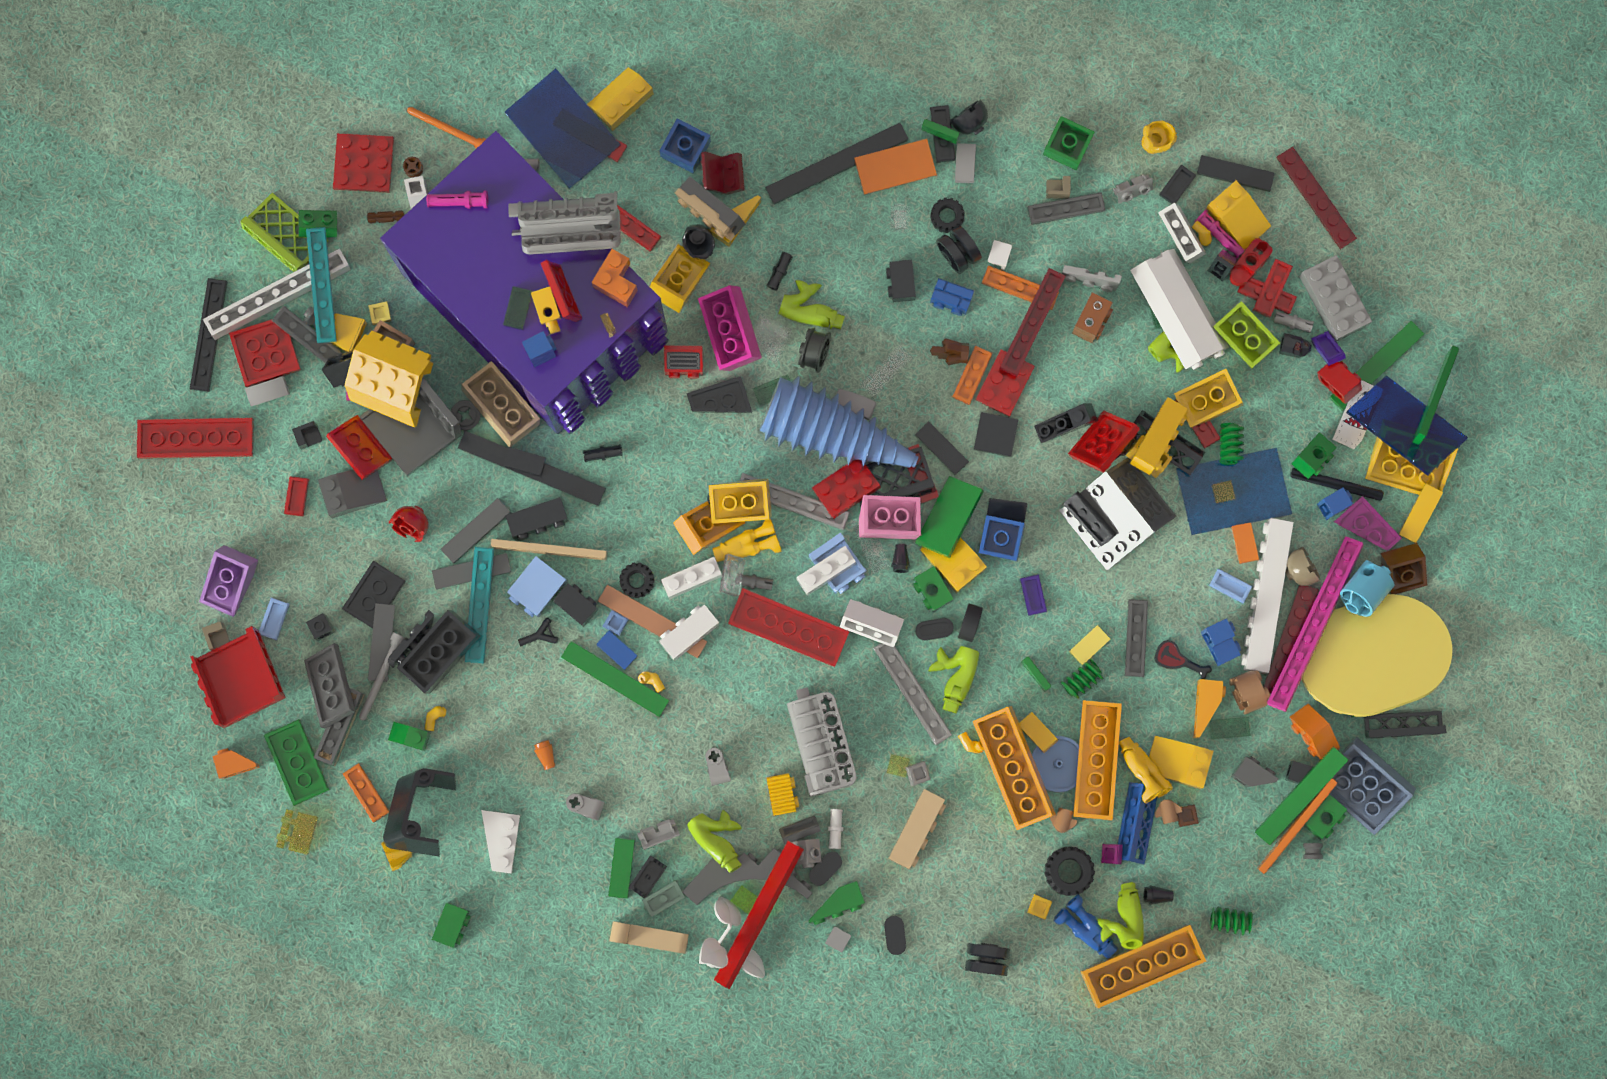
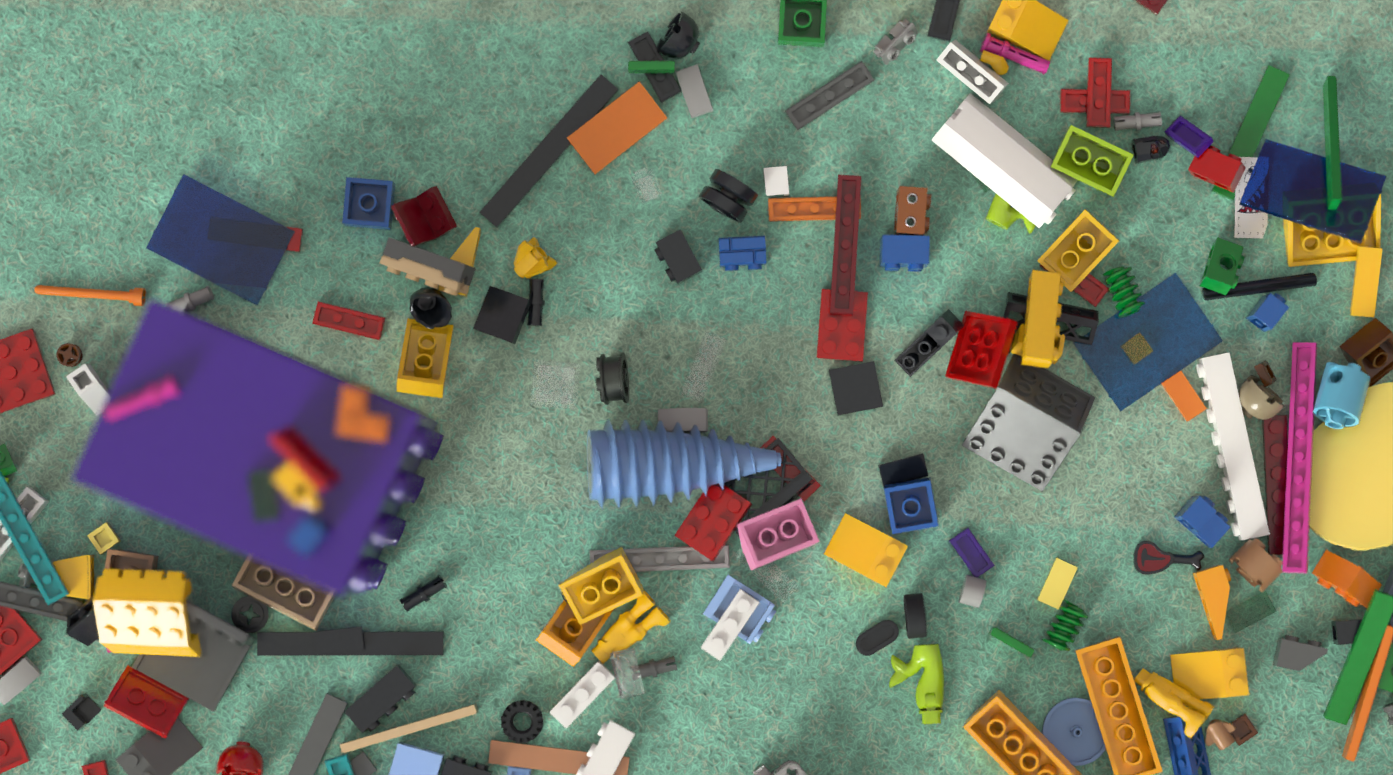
camera: 20 degrees left, 5 degrees up
(385, 216) = (62, 424): reddish brown axle -> none
(568, 224) = (279, 375): light grey piece -> none
(608, 324) = (374, 473): clear yellow tile -> none
(621, 98) = (272, 177): yellow slope -> none
(683, 361) = (471, 452): slope -> none
(721, 398) = (531, 474): black wing -> none
(729, 328) = (507, 393): dark pink brick -> none
(750, 269) = (502, 314): none -> black tile
(765, 391) = (577, 447): clear green tile -> none
(788, 627) = (714, 704): red plate -> none
(790, 237) = (532, 259): none -> yellow brick
(813, 314) = (594, 337): lime piece -> none
(871, 623) = (805, 661): white brick -> none
(900, 559) = (807, 574): black cone -> none
(913, 692) = (881, 717): light grey tile -> none
(932, 578) = (870, 600): green brick -> none
(941, 448) = (801, 429): black tile -> none
(949, 516) = (842, 505): green tile -> none
(951, 204) = (688, 149): black tyre -> none
(952, 351) = (769, 313): reddish brown rock -> none
(970, 745) = (969, 751): yellow arm -> none
(972, 375) = (801, 331): orange tile -> none
(1022, 623) = (972, 591): none -> light grey piece
(1038, 732) = (1039, 706): yellow tile -> none
(1058, 188) = (811, 76): dark tan panel -> none
(1075, 345) = (904, 251): none -> blue brick
(1089, 518) = (1001, 444): black tile -> none
(1098, 279) = (868, 169): light grey wing -> none
(1136, 638) = (1105, 554): dark grey tile -> none
(1223, 264) = (1033, 88): black slope -> none
(1230, 586) = (1186, 451): light blue tile -> none
(1242, 271) = (1058, 89): red piece -> none
(1315, 550) = (1265, 373): none -> reddish brown tile
(1335, 298) = (1174, 75): light grey brick -> none
(1368, 524) = (1313, 318): magenta wing -> none

